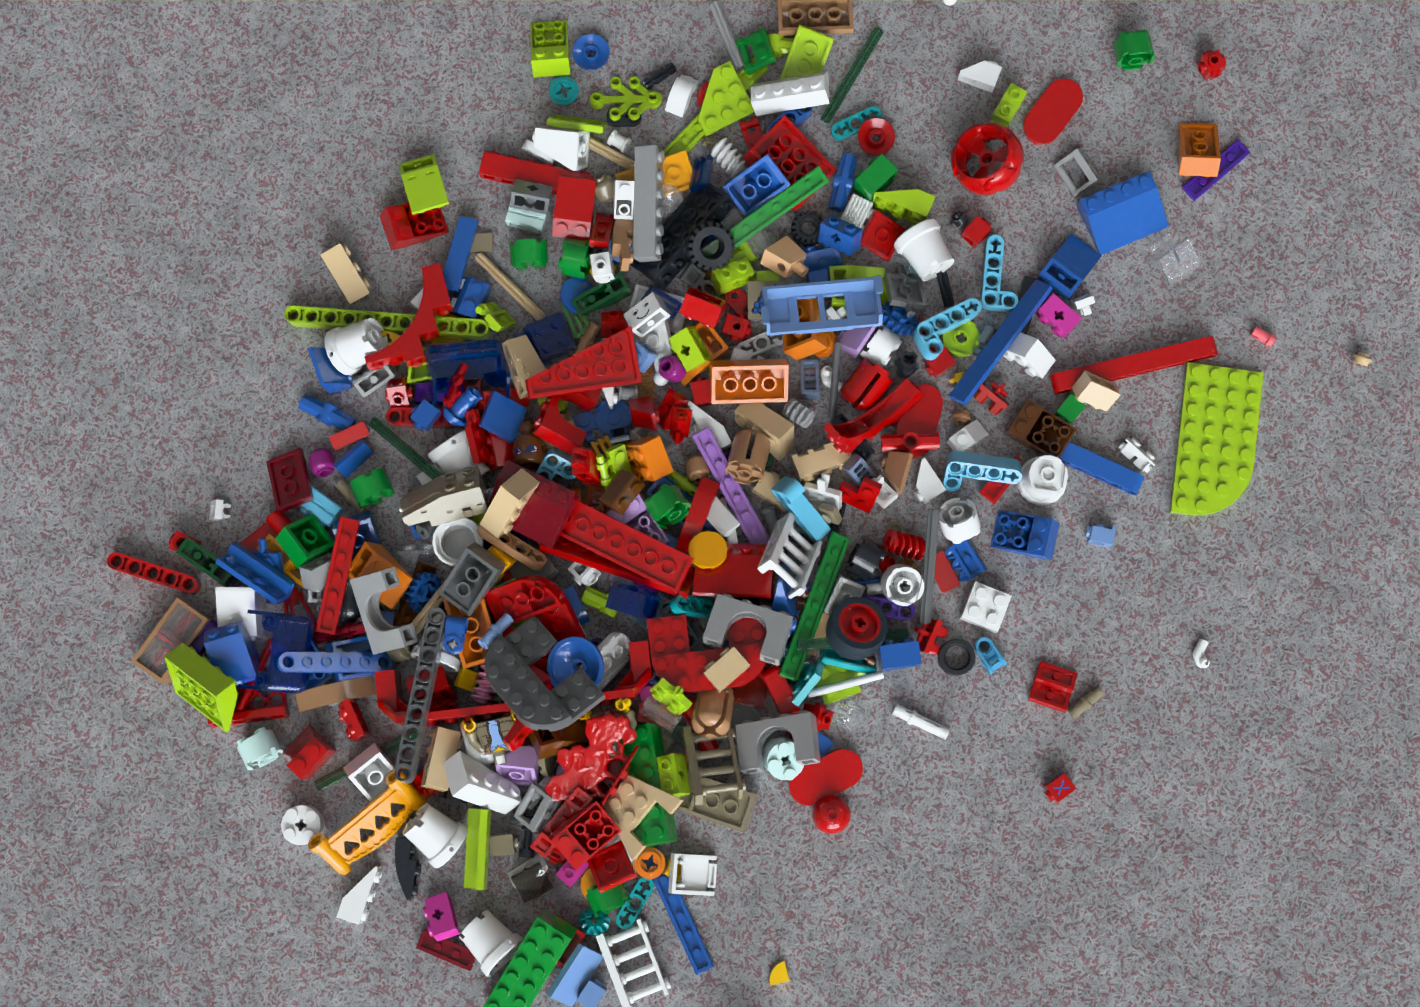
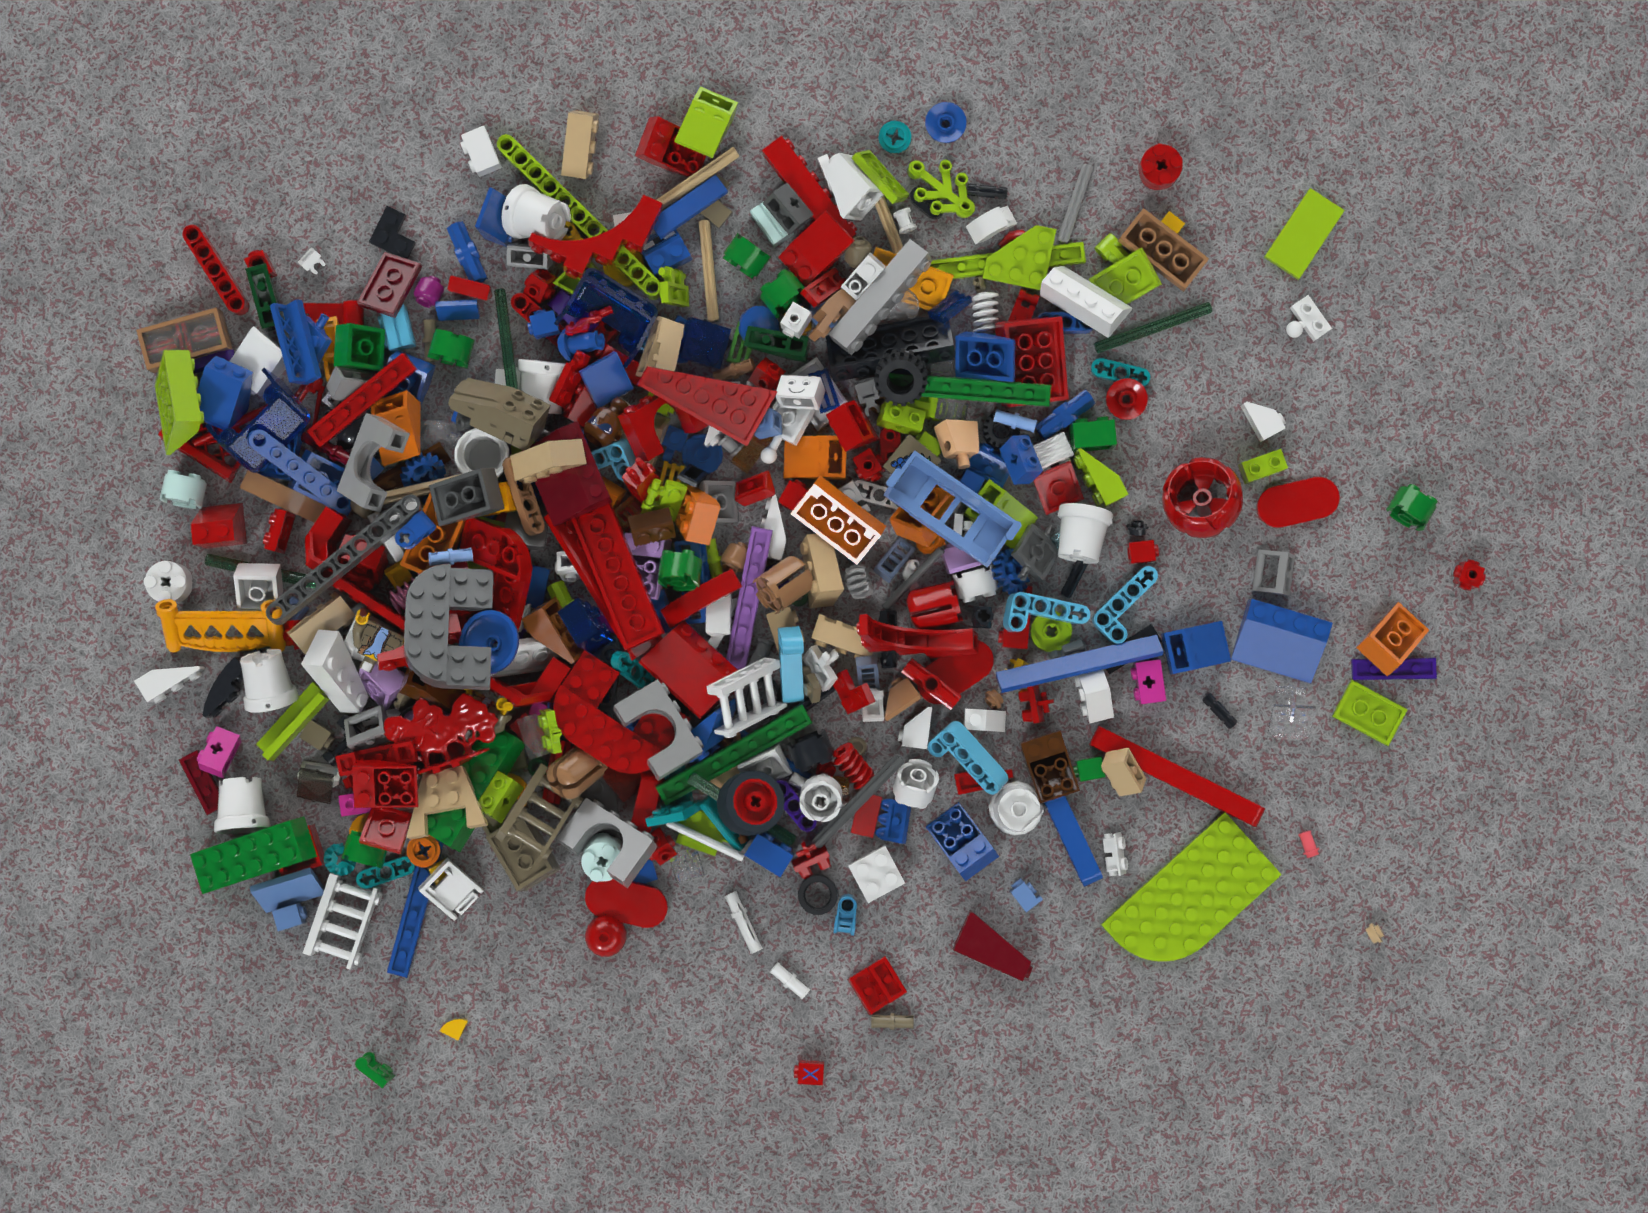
camera: 45 degrees right, 5 degrees up
(259, 449) = (387, 237): none -> black plate
(278, 334) = (481, 151): none -> white brick
(449, 226) = (698, 177): none -> tan axle
(550, 48) = (913, 90): lime slope -> none
(611, 624) = (549, 629): none -> dark orange slope
(644, 413) = (729, 473): red slope -> none
(672, 368) = (784, 456): magenta head -> none
(680, 424) = (752, 508): red hinge -> none
(698, 352) = (813, 461): lime brick -> none
(708, 550) = (683, 634): light orange tile -> none
(726, 668) = (611, 747): tan brick -> none
(761, 49) = (1092, 242): green plate -> none
(813, 212) = (1015, 420): none -> light blue pin
(988, 735) = (789, 980): none -> white pin
(1082, 303) = (1179, 688): white tile -> none
(1103, 593) = (988, 947): none -> dark red slope
(1123, 296) = (1220, 711): none -> black axle
(1199, 656) = (1021, 1062): white arm -> none
(1225, 213) = (1369, 712): none -> lime tile

